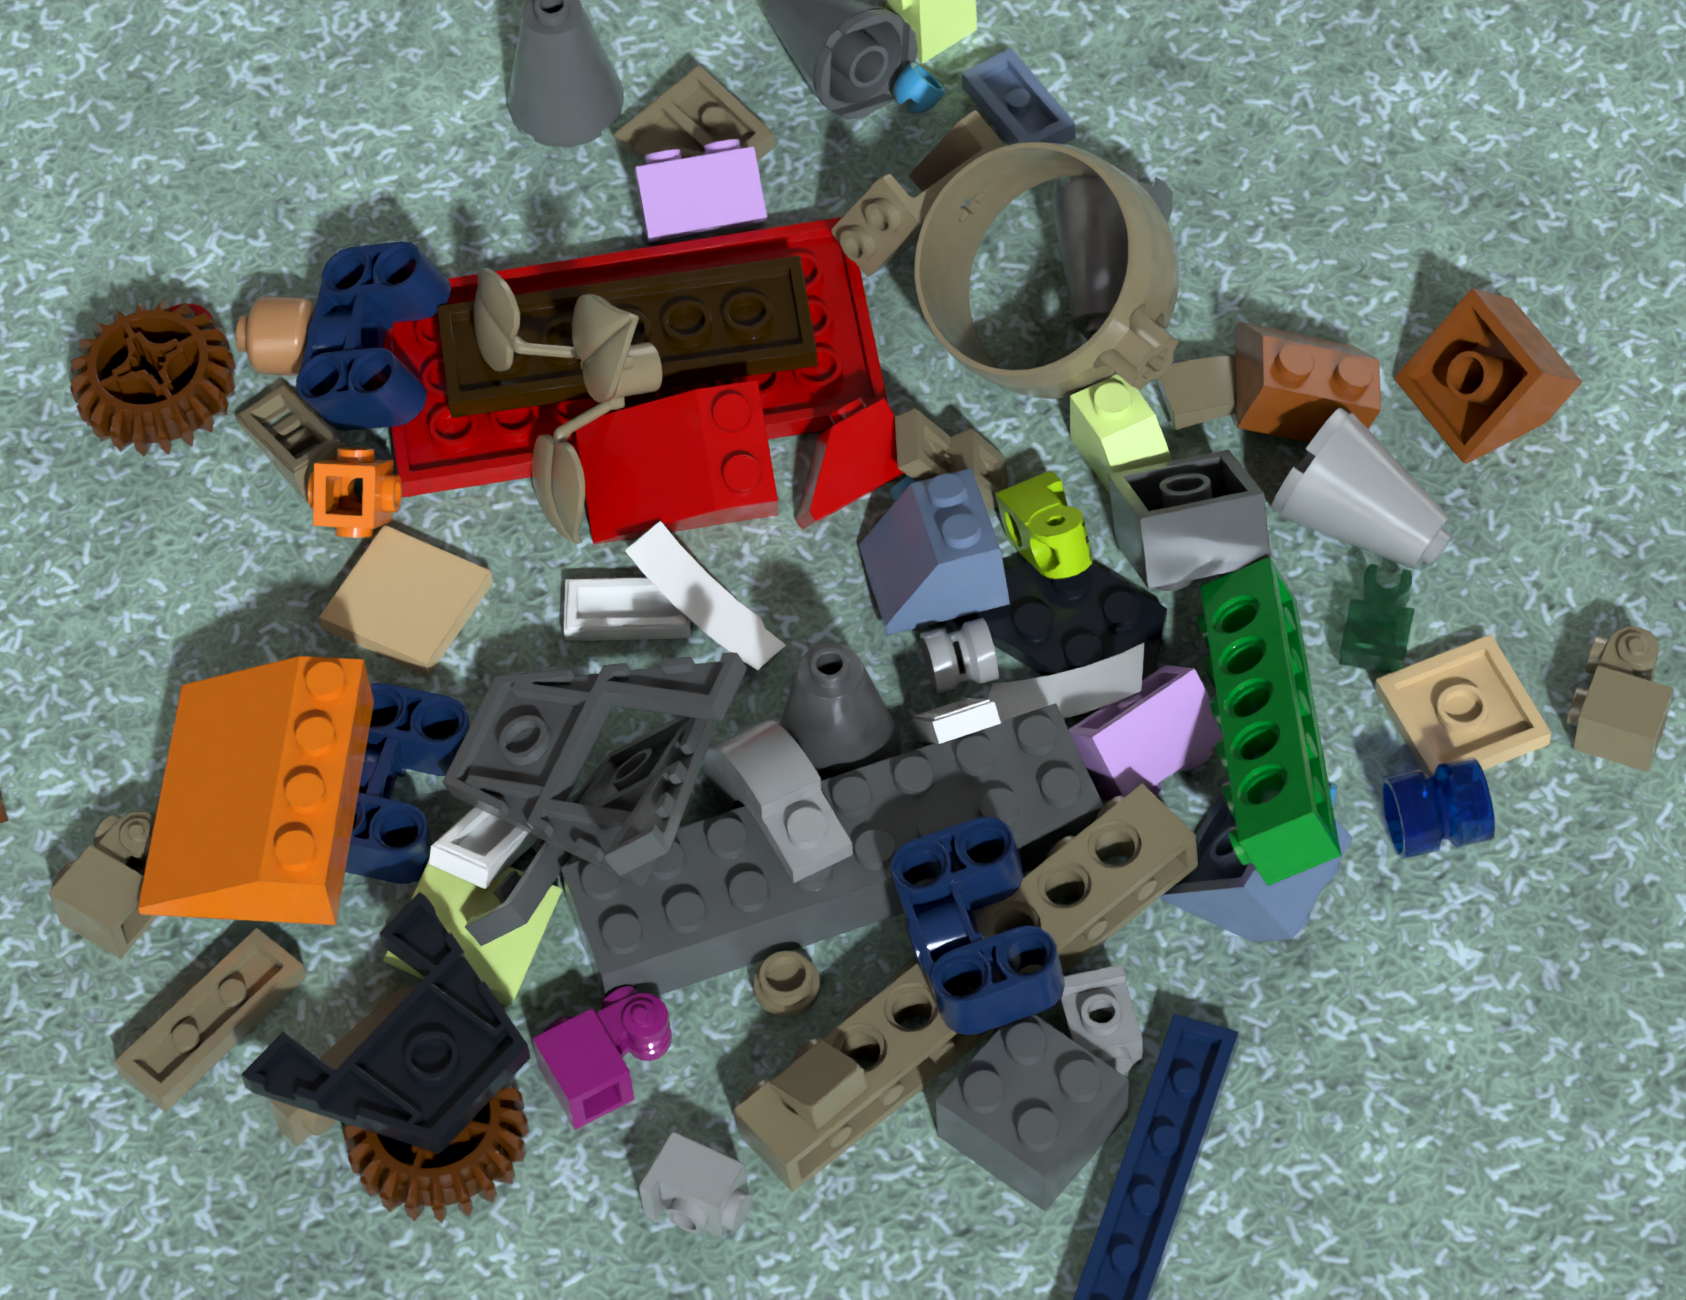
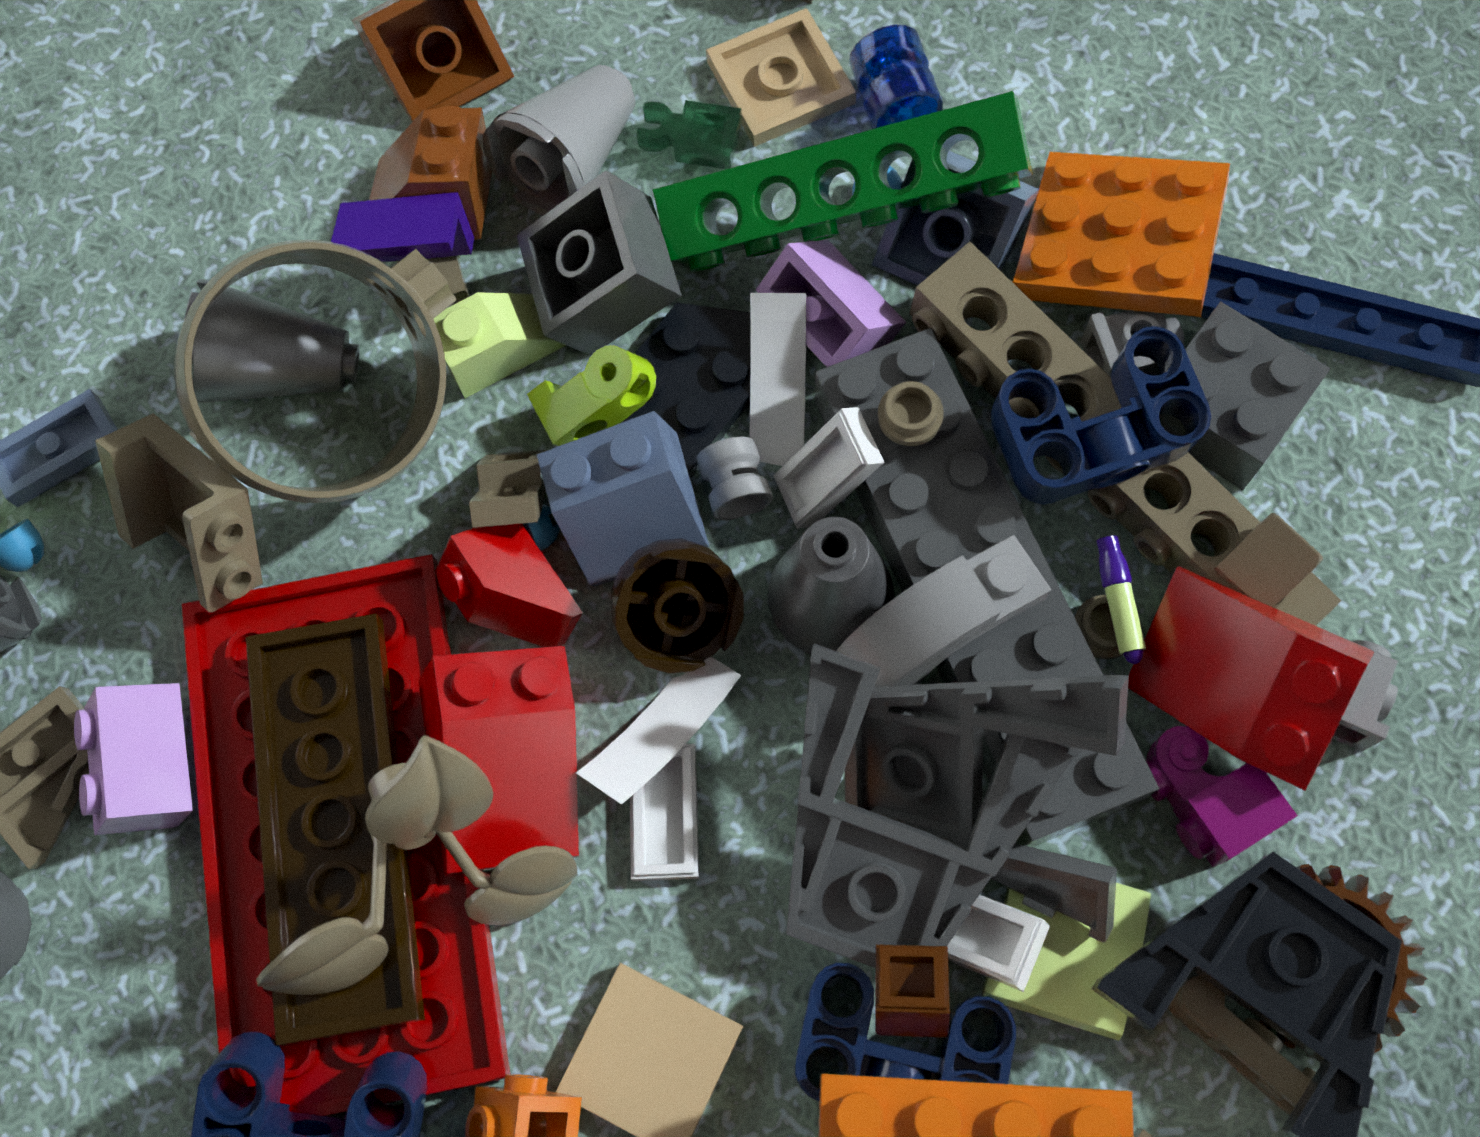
camera: 90 degrees left, 15 degrees up
(436, 764) = (912, 991): none -> reddish brown slope
(698, 1072) = (1248, 676): none -> red slope
(804, 972) = (1117, 584): none -> piece
(817, 590) = (676, 605): none -> dark brown cylinder
(989, 764) = (910, 413): none -> dark tan plate
(1218, 341) = (399, 225): none -> dark purple panel
(1234, 1013) = (1123, 233): none -> orange plate

